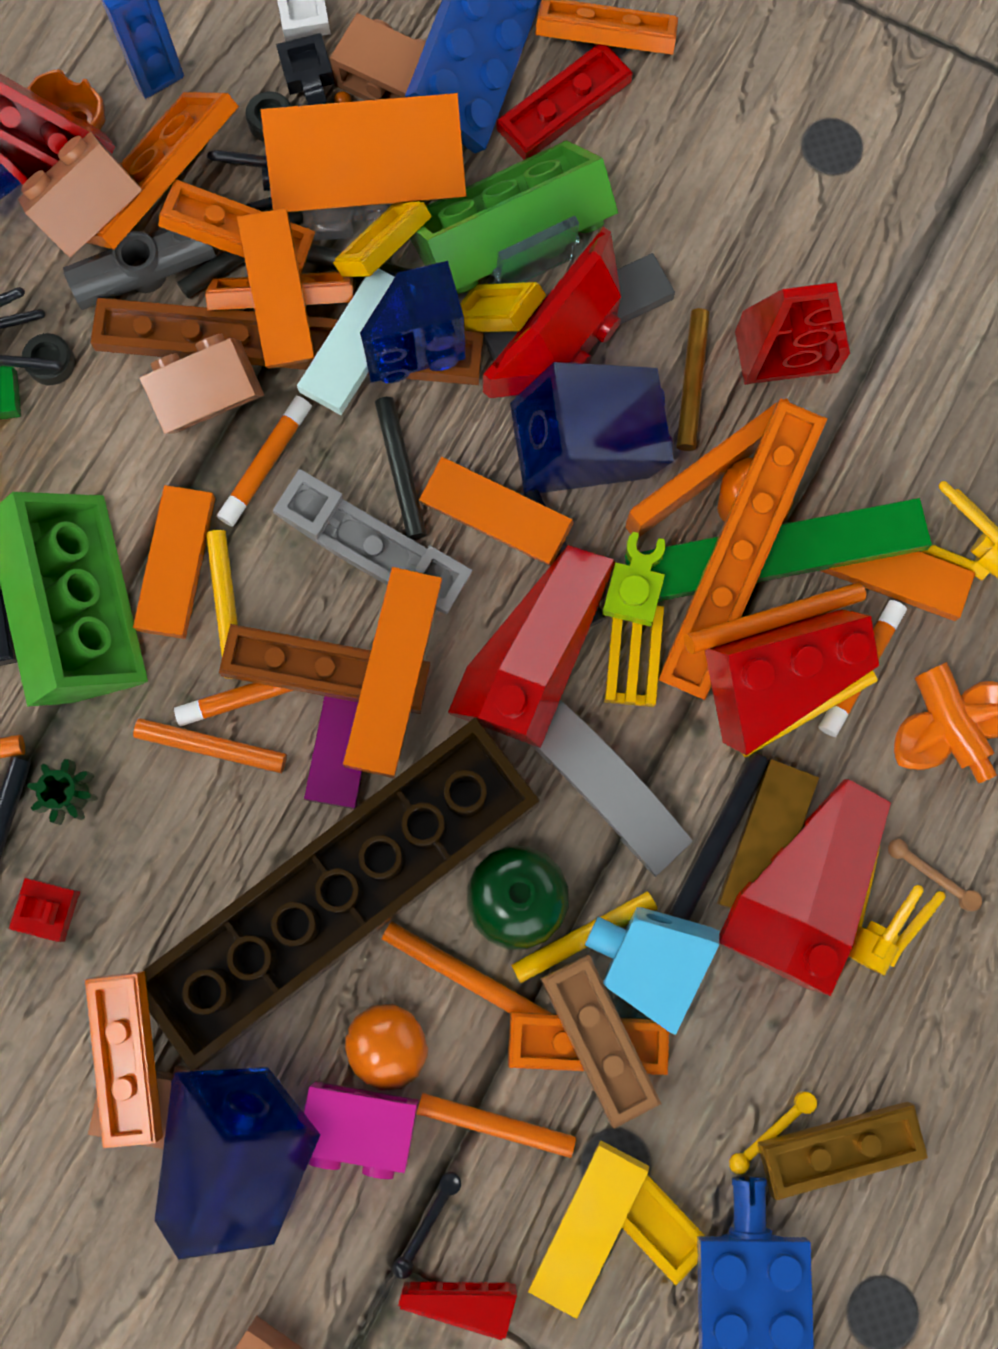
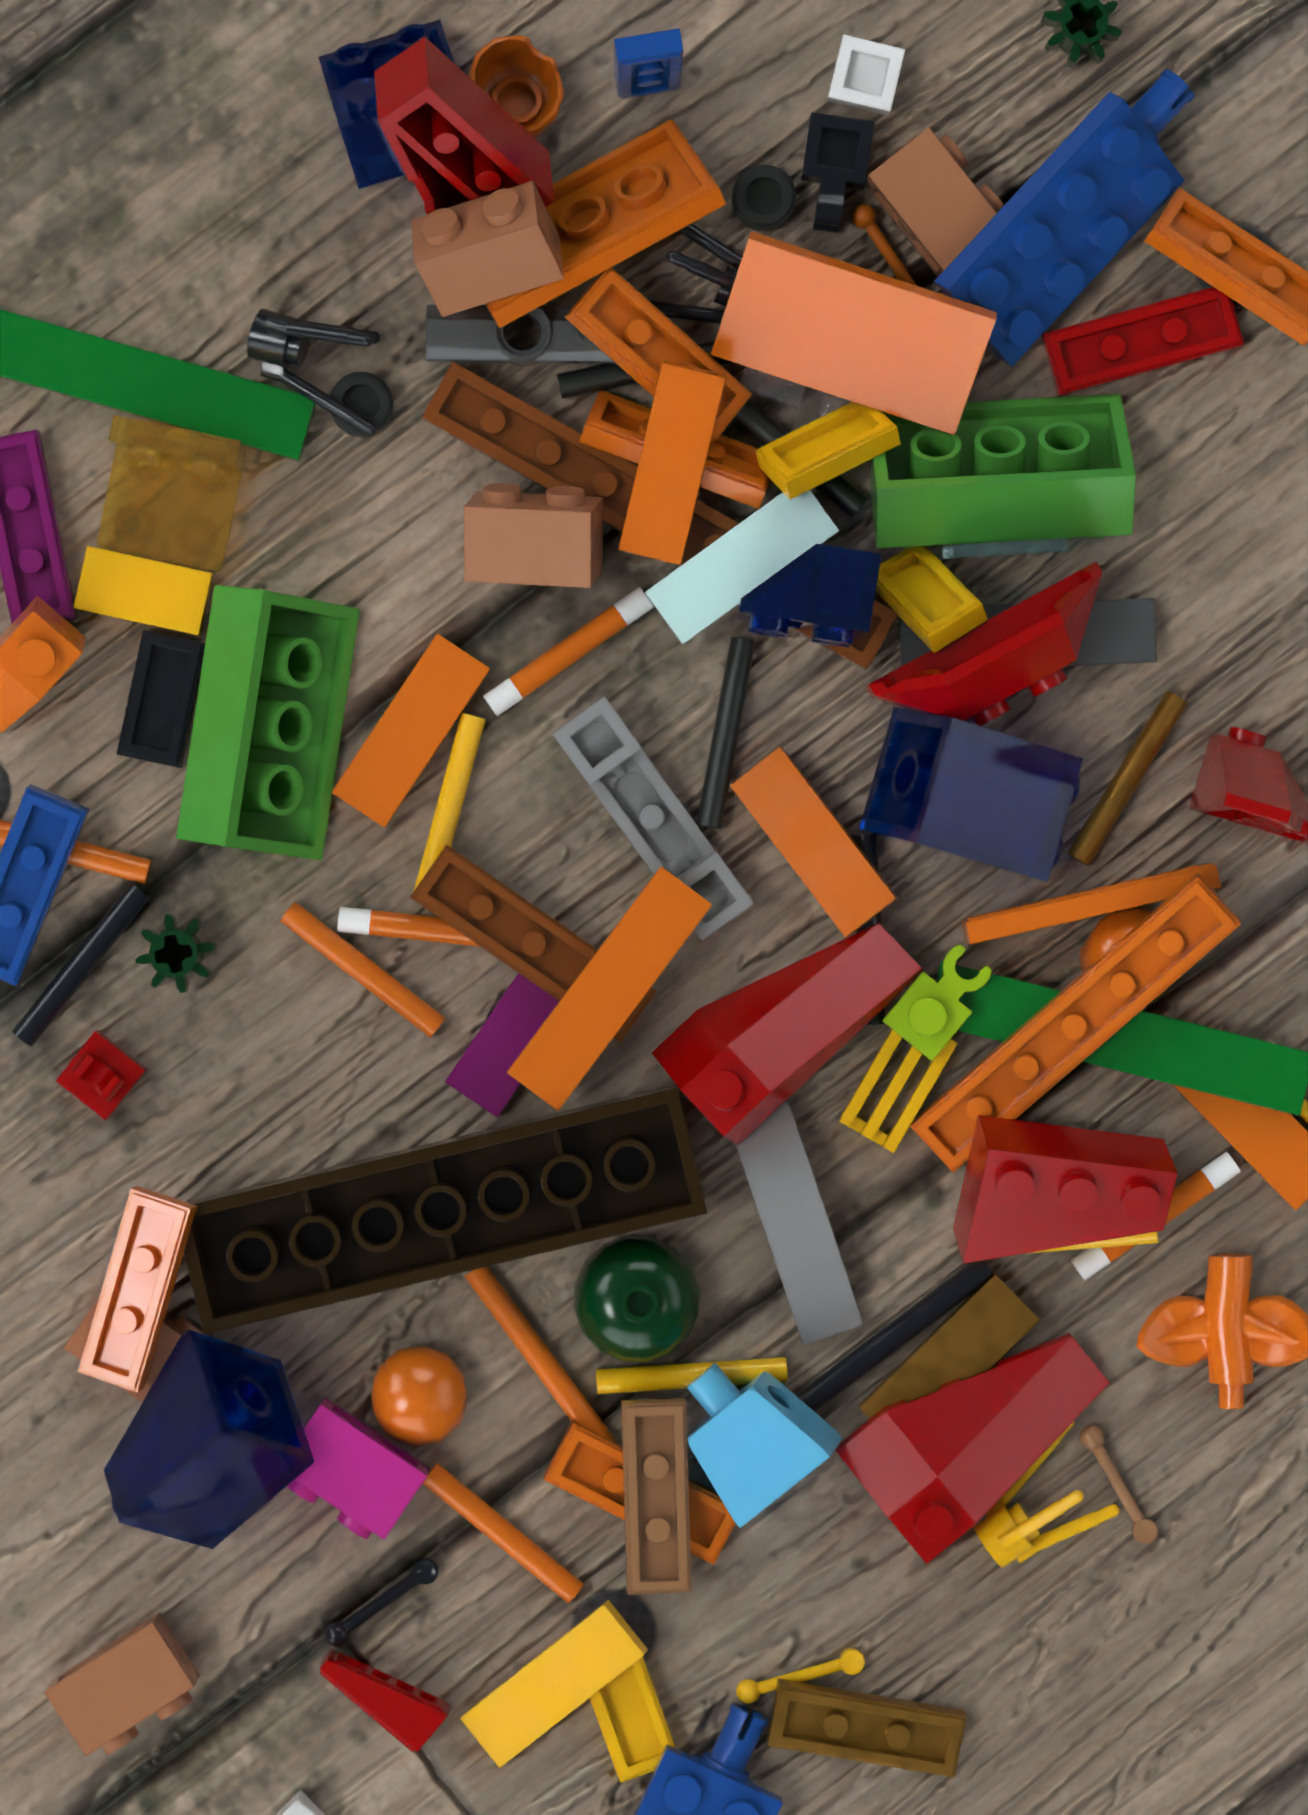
camera: 25 degrees right, 10 degrees up
(774, 618) = (1077, 1118): orange bar -> none

